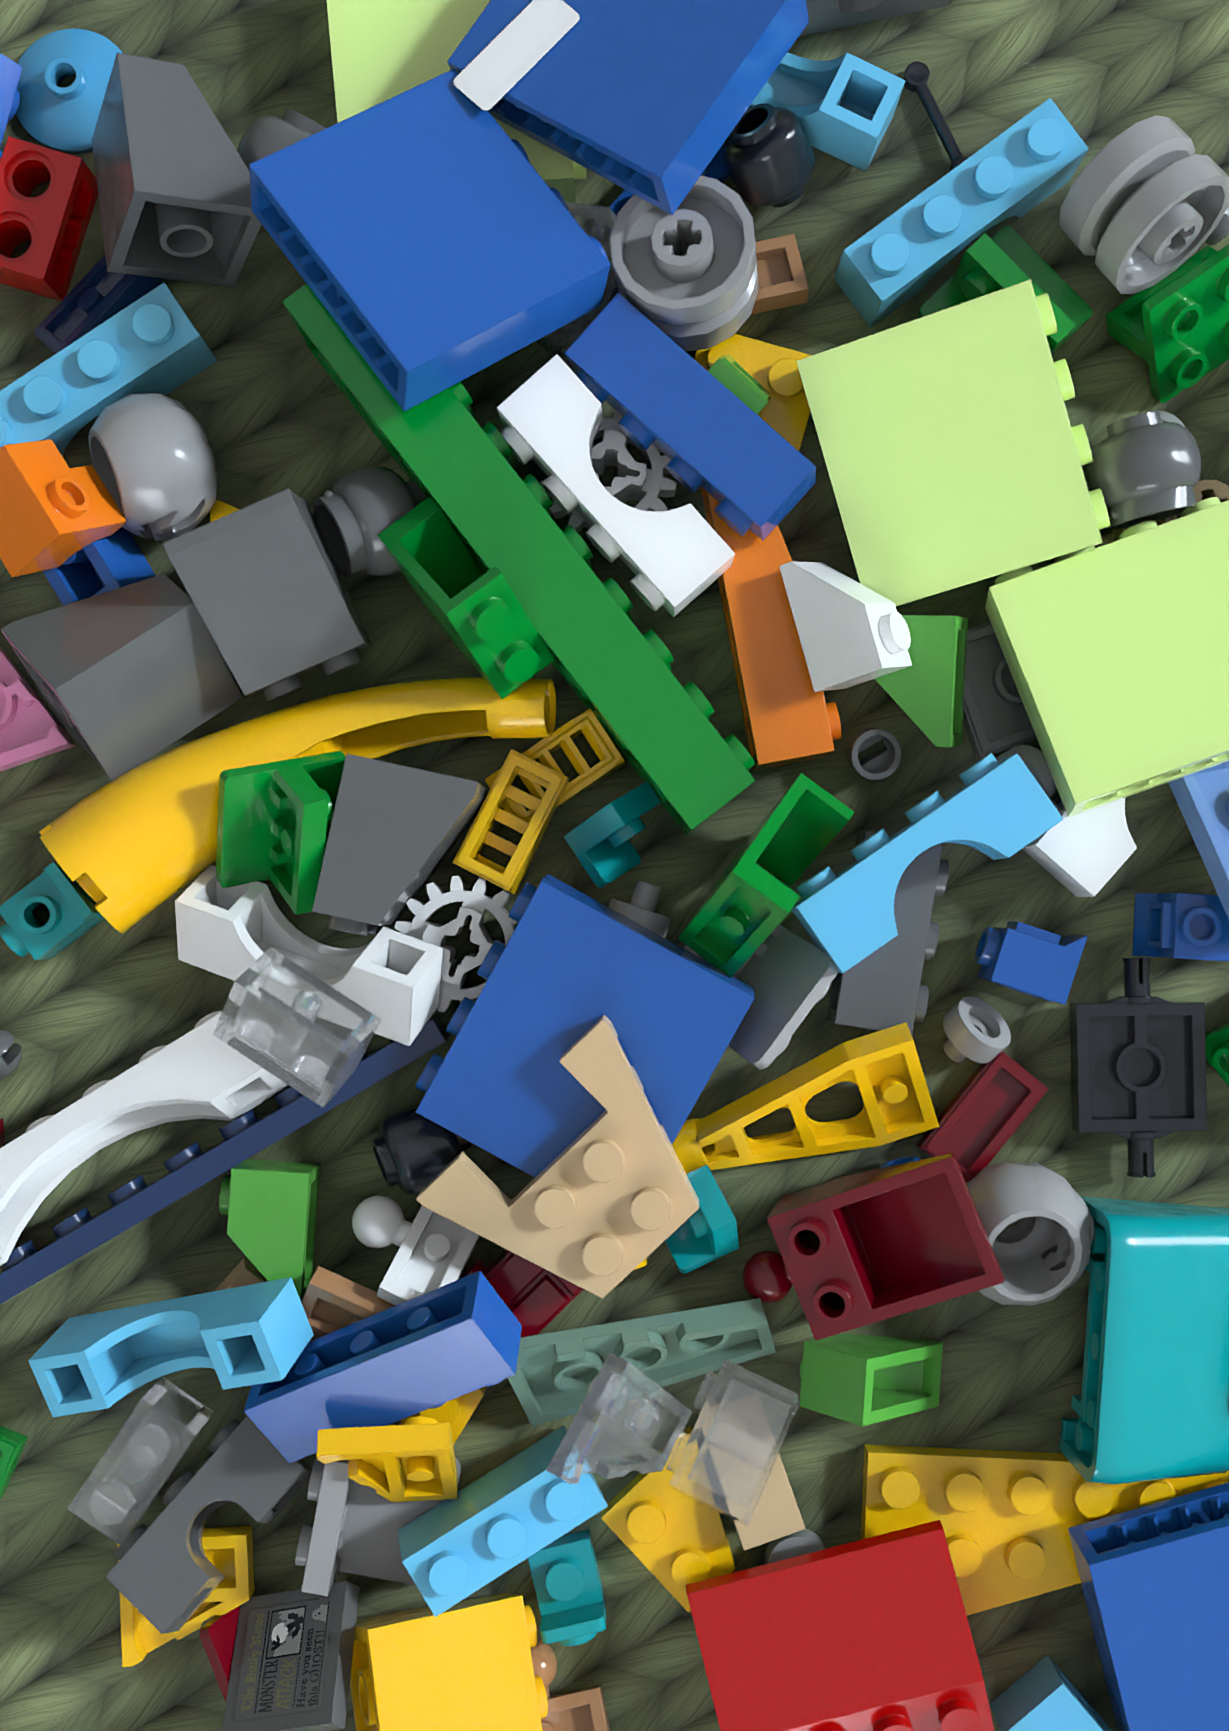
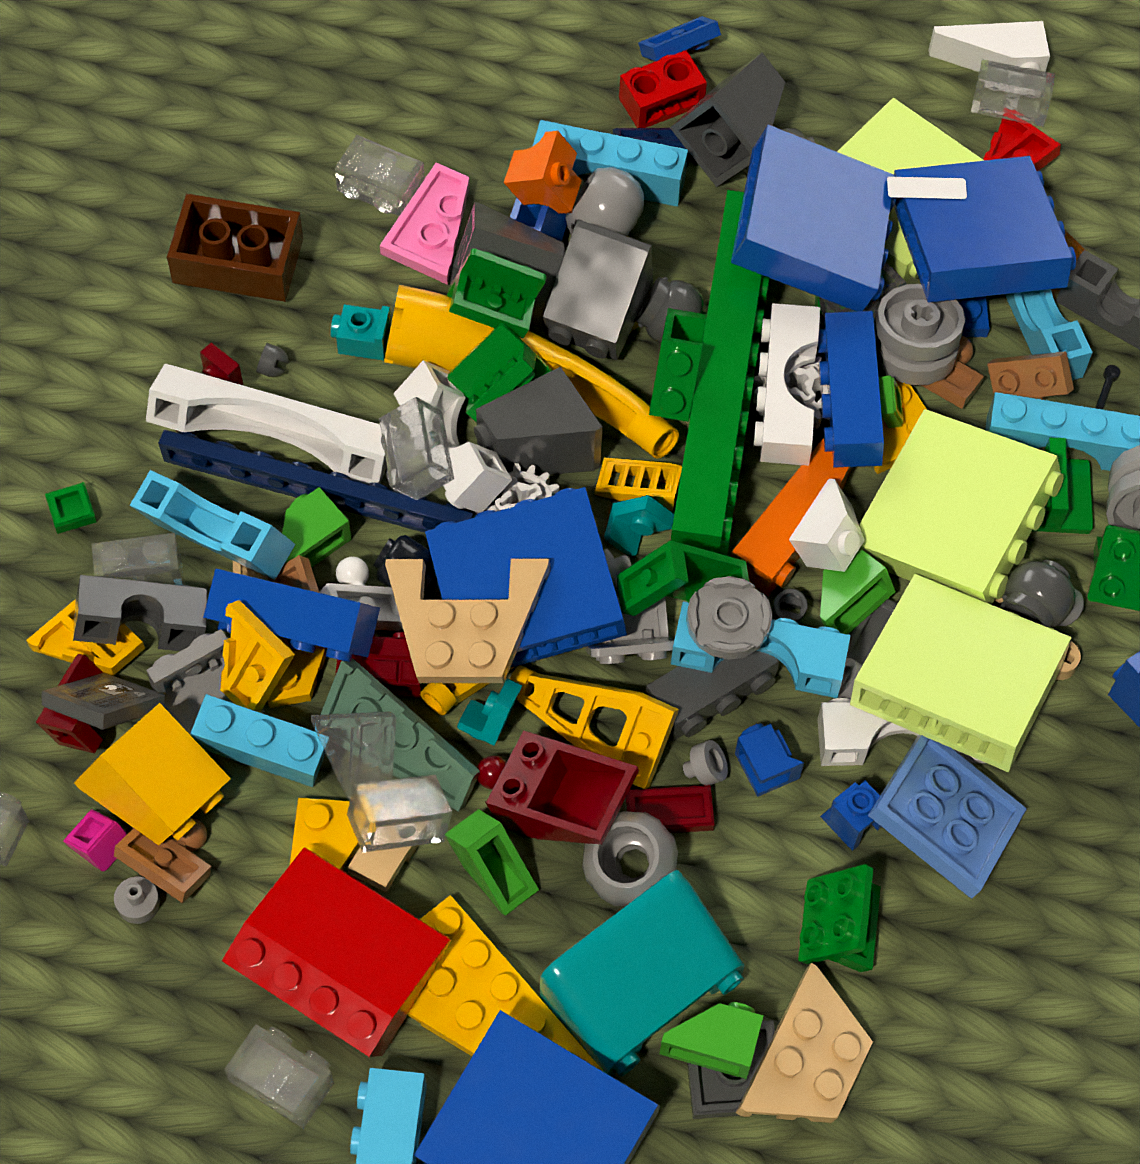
camera: 45 degrees right, 25 degrees down
(64, 116) = (716, 59): dark azure dish -> none
(172, 744) = (495, 291): none -> green bracket
(490, 811) = (599, 491): yellow slope -> none
(569, 1590) = (248, 813): teal bracket -> none
(768, 156) = (1003, 333): black head -> none
(859, 184) = (1032, 375): none -> medium nougat plate
(872, 877) = (729, 618): none -> light grey tile
(1138, 1067) = (767, 856): black plate -> none

